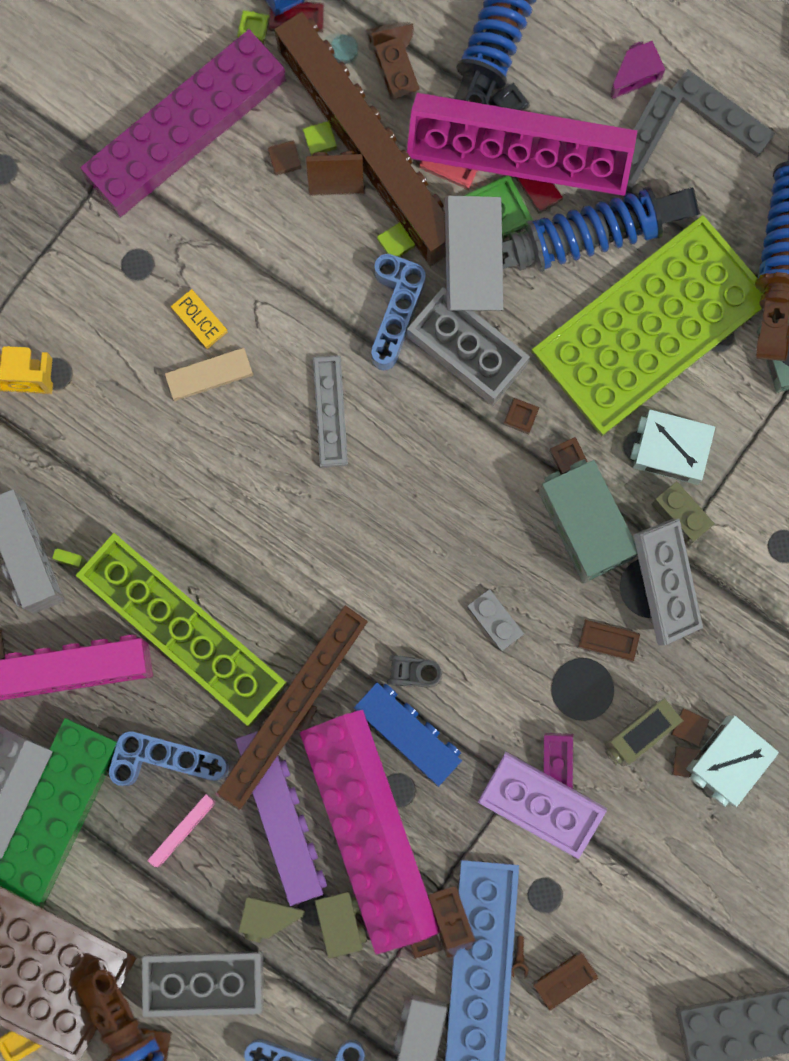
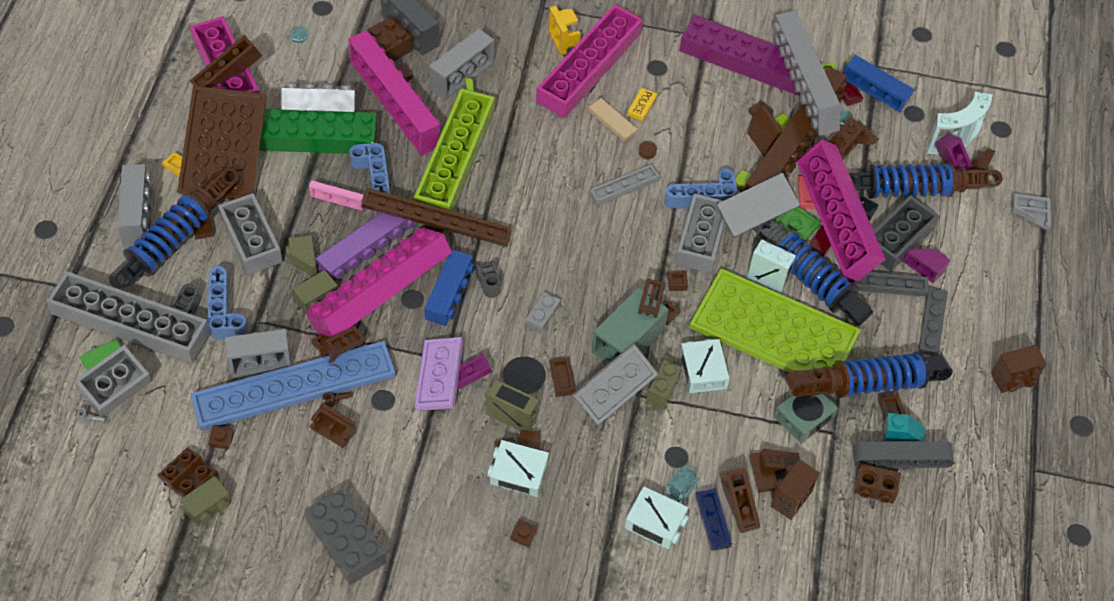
camera: 60 degrees right, 25 degrees down
(93, 359) = (589, 61): none -> dark pink brick
(284, 350) = (647, 150): none -> reddish brown tile
(287, 69) = (807, 73): none -> light grey brick
(565, 484) = (648, 310): none -> reddish brown tile
(569, 283) = (771, 266): none -> light aqua brick
(578, 74) = (904, 230): none -> dark grey brick

